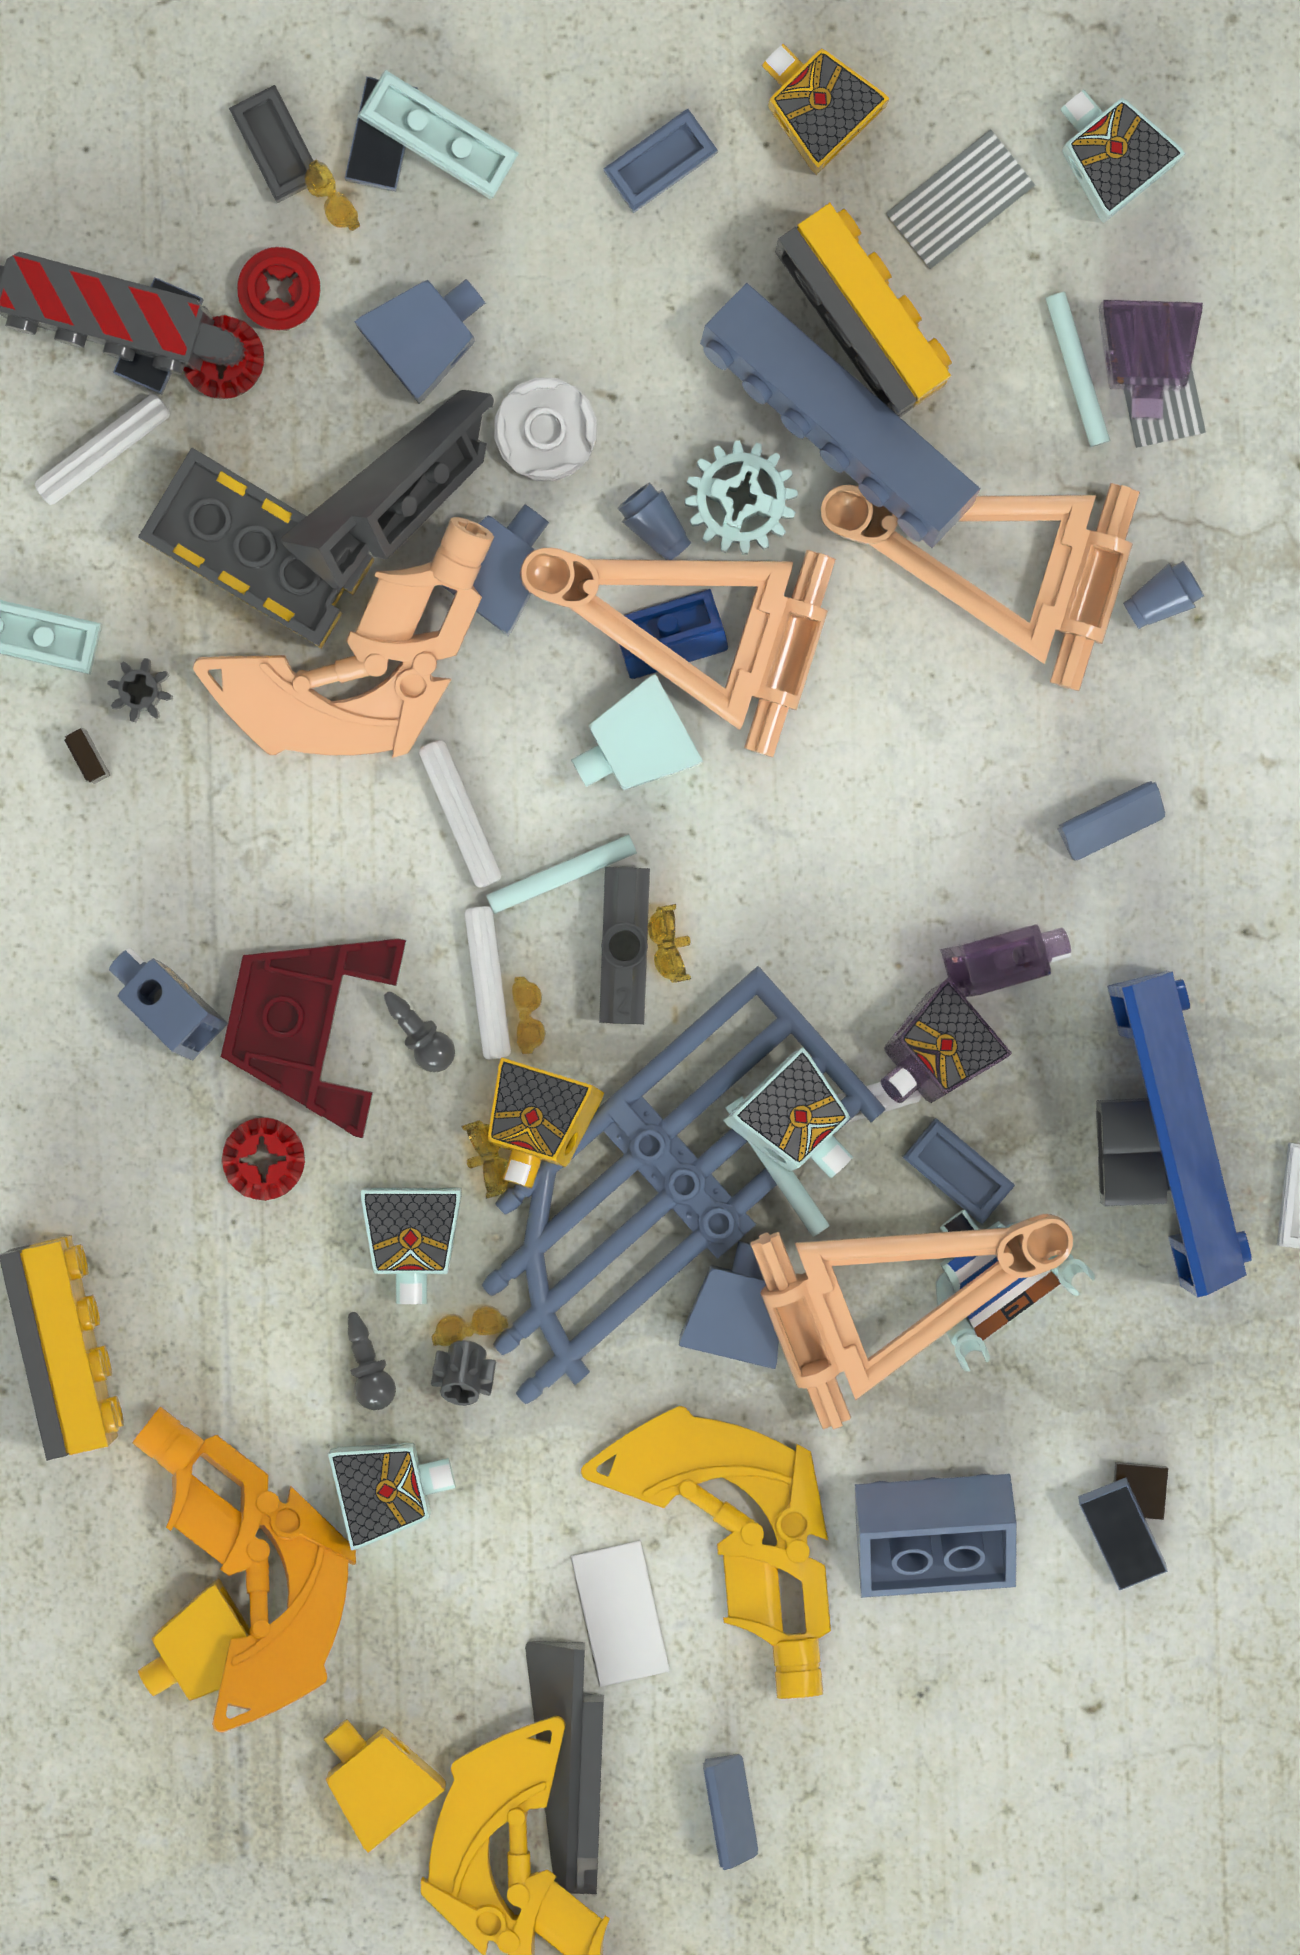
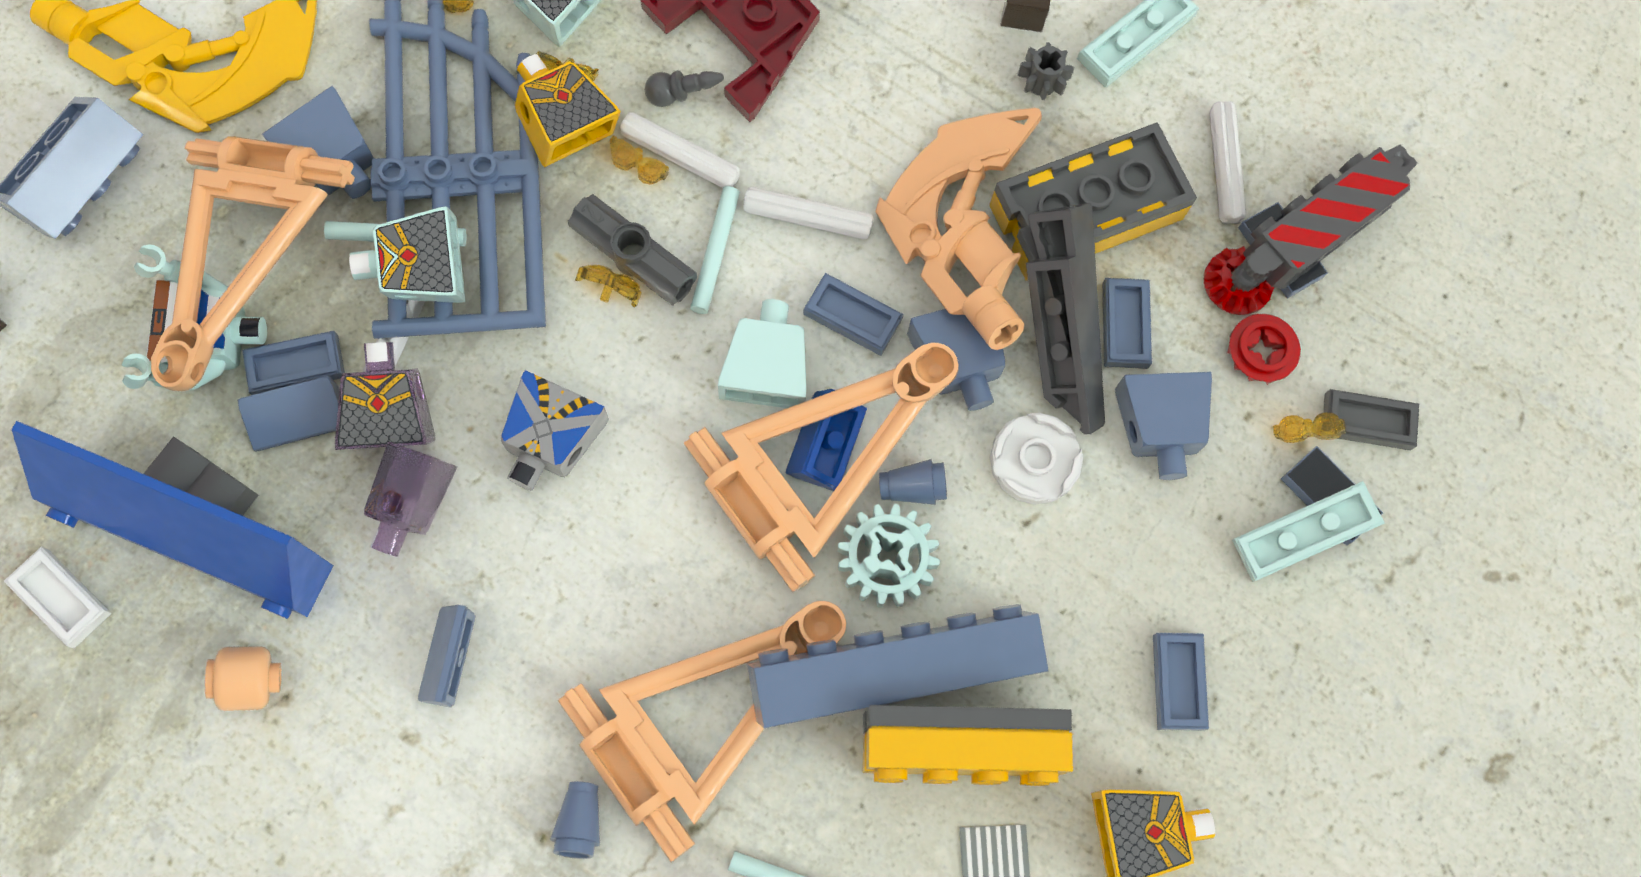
camera: 120 degrees right, 15 degrees down
(346, 435) = (1127, 323): none -> sand blue tile
(529, 697) = (853, 314): none -> sand blue tile
(852, 887) = (548, 429): none -> torso
(1005, 1128) = (290, 413): none -> sand blue slope
(1258, 973) = (242, 678): none -> light nougat head

